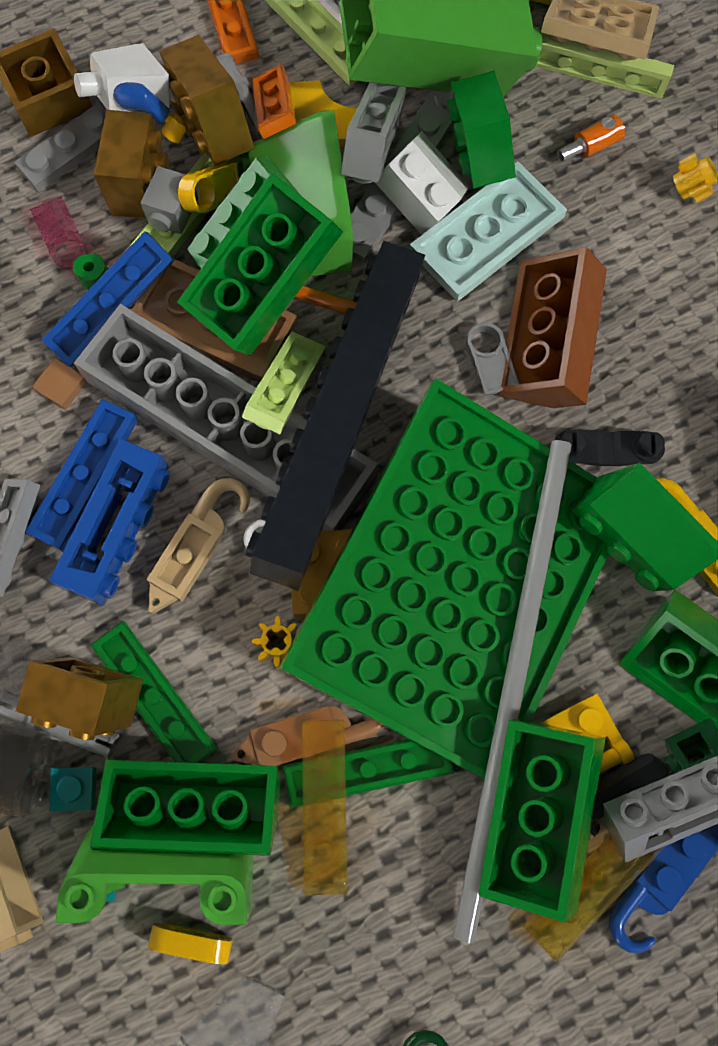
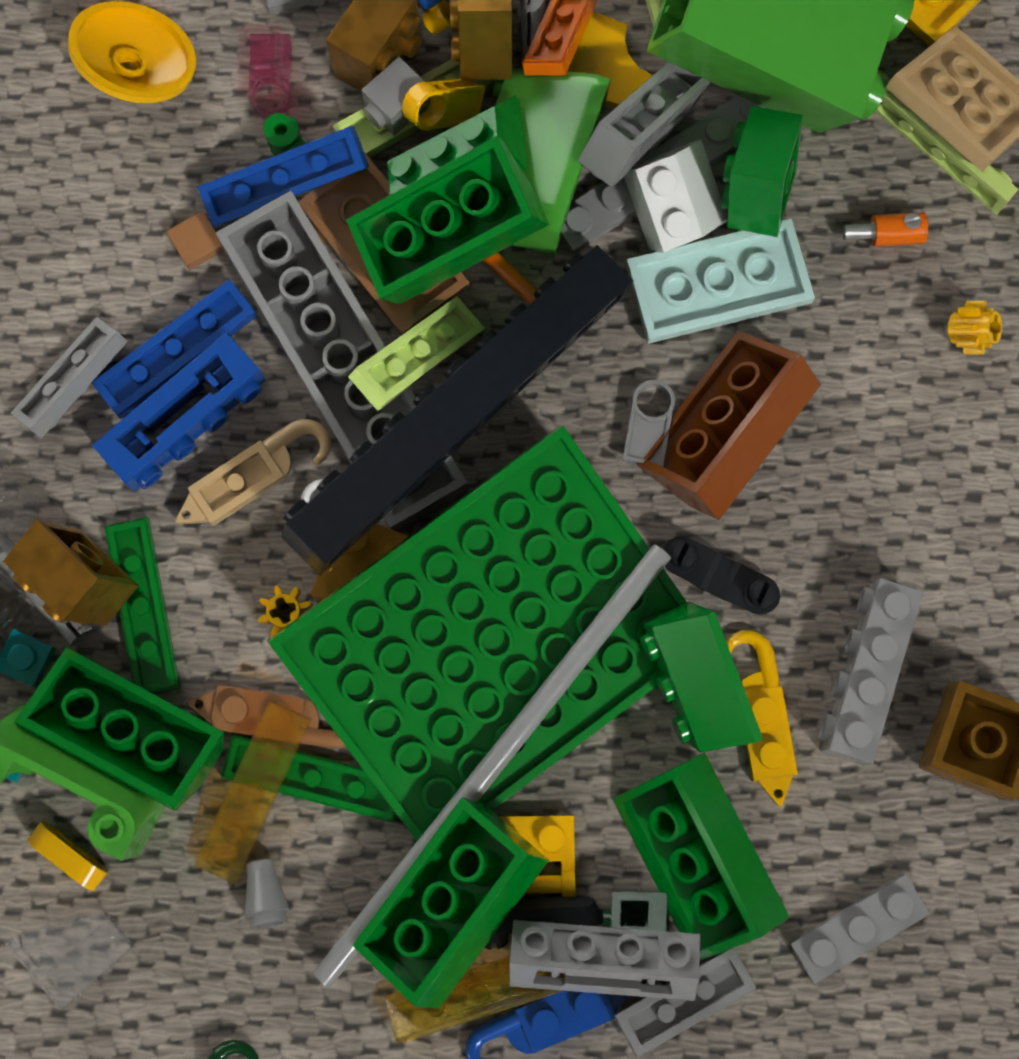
camera: 25 degrees right, 5 degrees up
(378, 891) = (264, 896): none -> light grey cone

